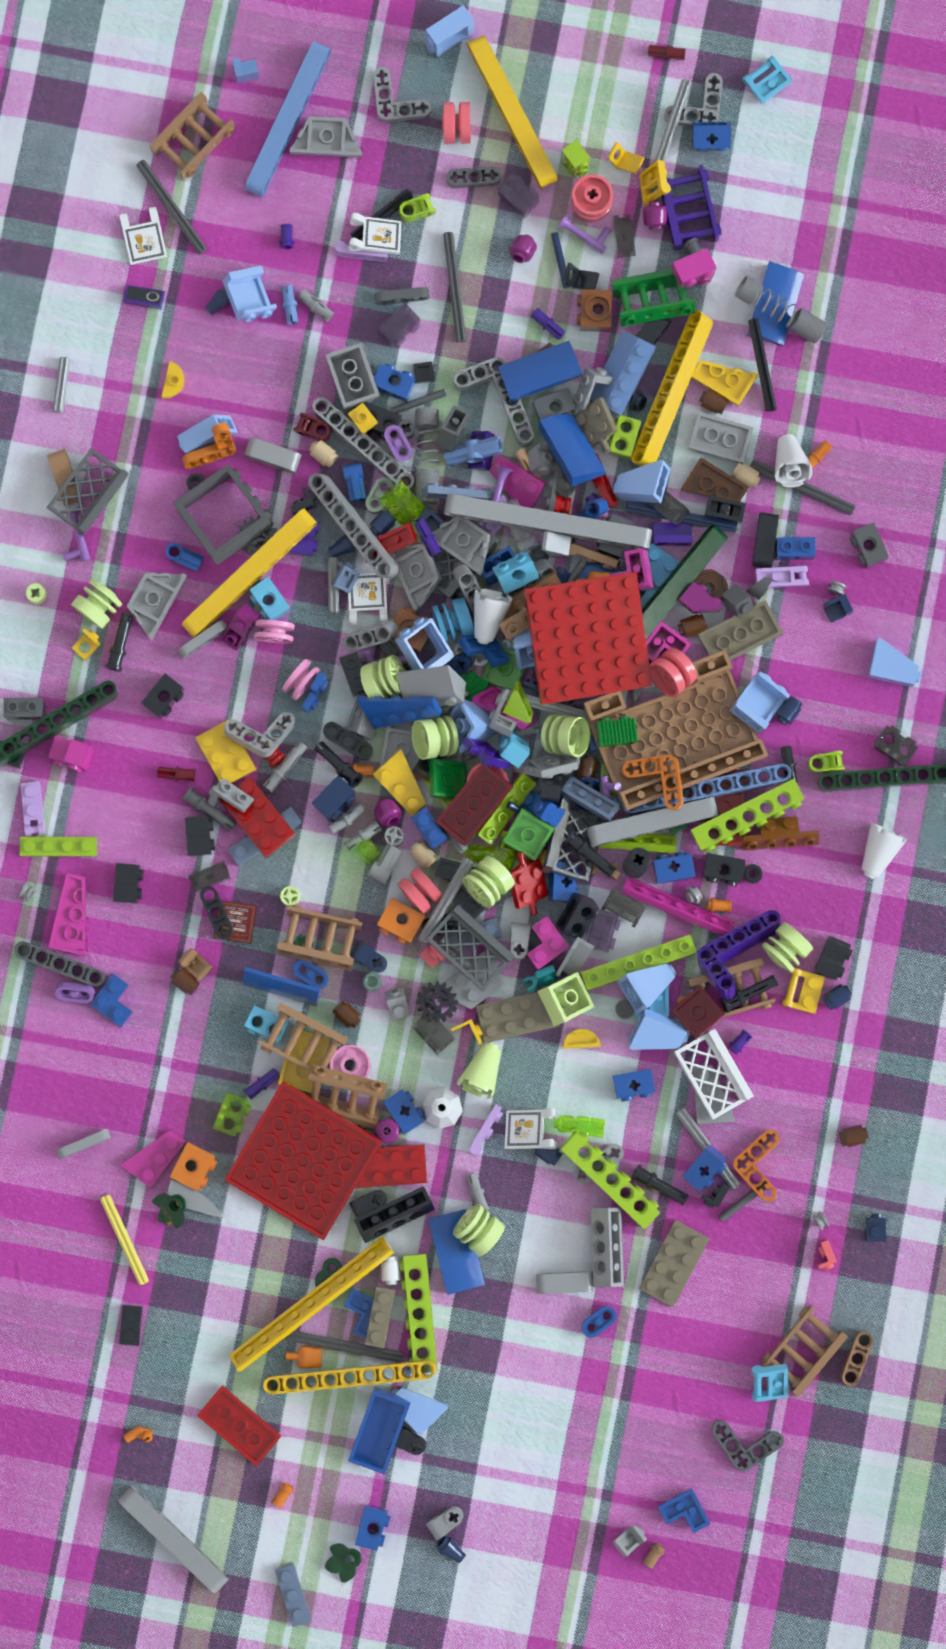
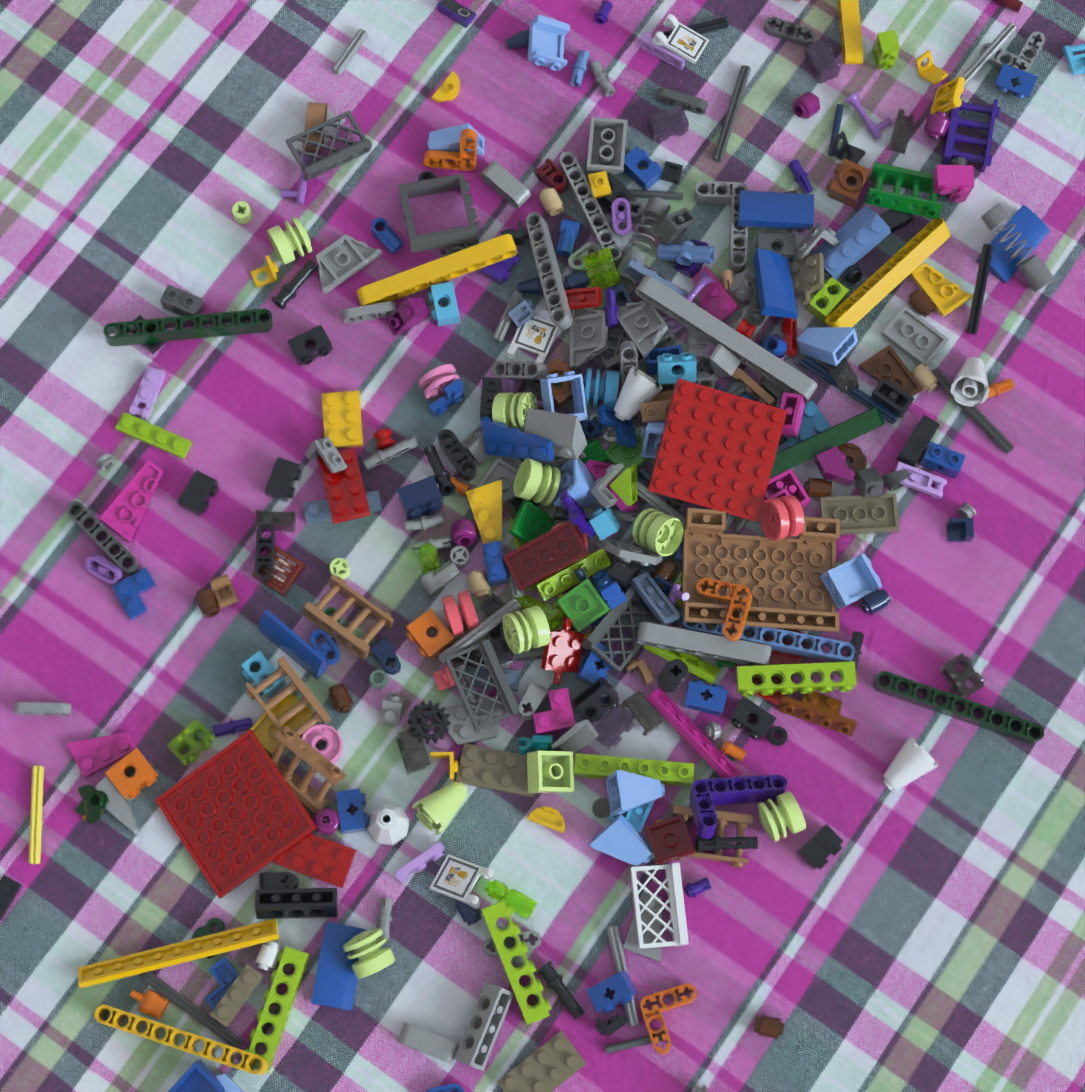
camera: 20 degrees right, 10 degrees down
(72, 753) = (205, 359): dark pink brick -> none
(176, 773) = (290, 417): dark red axle -> none
(200, 804) = (298, 453): dark grey pin -> none
(239, 1425) = (55, 1040): red plate -> none
(265, 739) = (379, 418): light grey beam -> none
(274, 631) = (435, 330): bright pink wheel -> none
(420, 206) = (728, 35): lime piece -> none
(582, 847) = (628, 639): black pin -> none
(601, 192) = (886, 88): coral wheel -> none
(616, 732) = (706, 547): green brick -> none
(622, 1083) = (571, 874): blue brick -> none
(671, 534) = (834, 402): dark purple panel -> none
(809, 992) = (784, 871): yellow plate -> none
(829, 761) = (893, 663): lime piece -> none
(837, 997) = (809, 886): dark blue brick -> none
(869, 534) = (1012, 498): dark grey brick -> none
(892, 666) = (990, 603): light blue slope -> none

